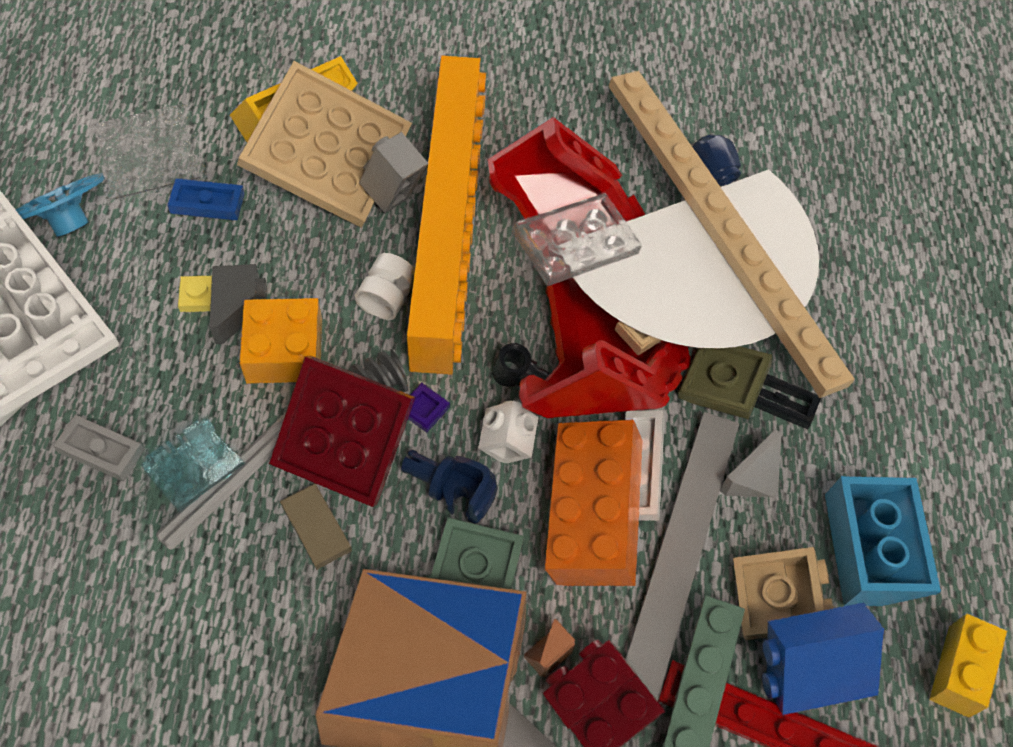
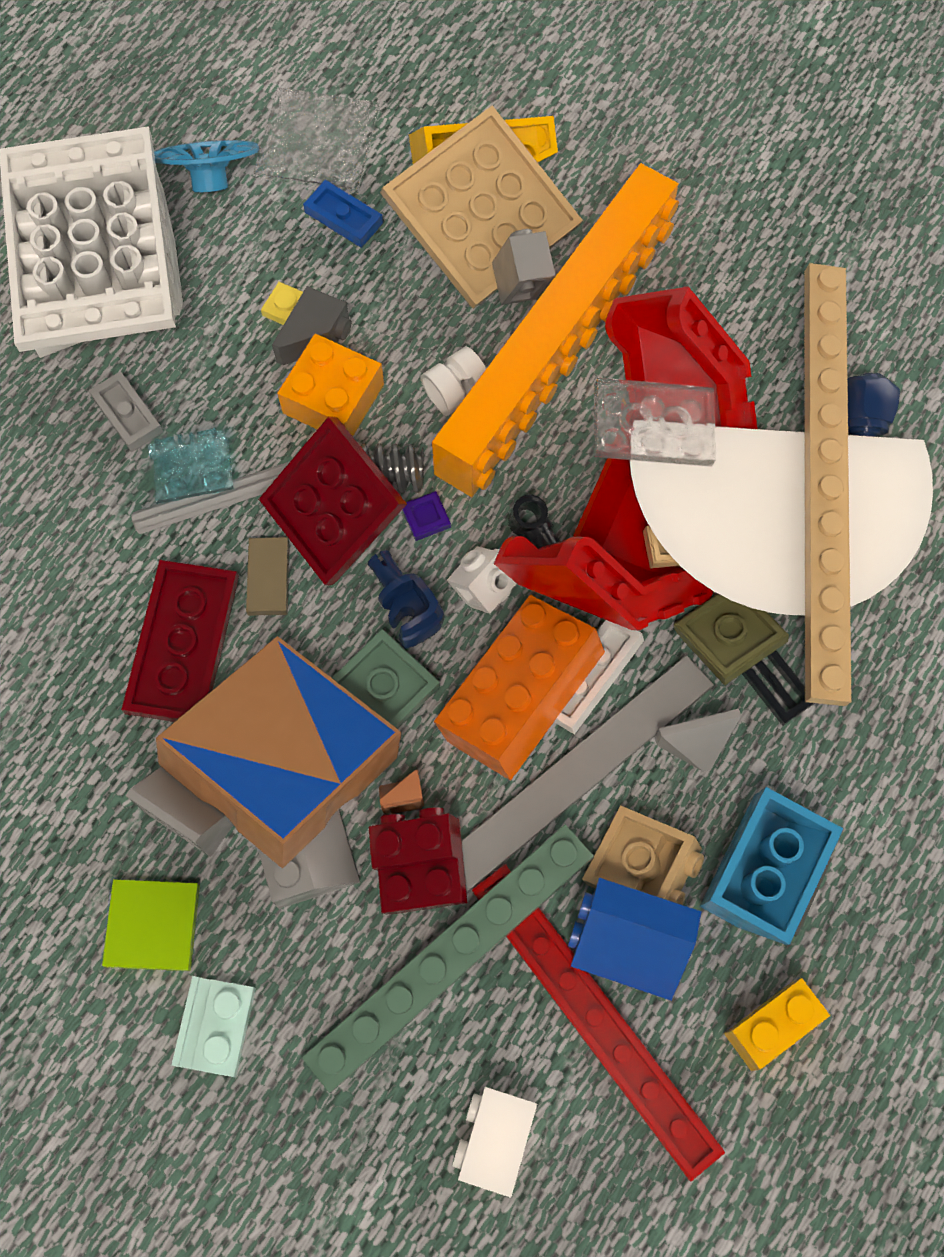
camera: 35 degrees right, 10 degrees up
(269, 626) = (180, 640): none -> dark red plate

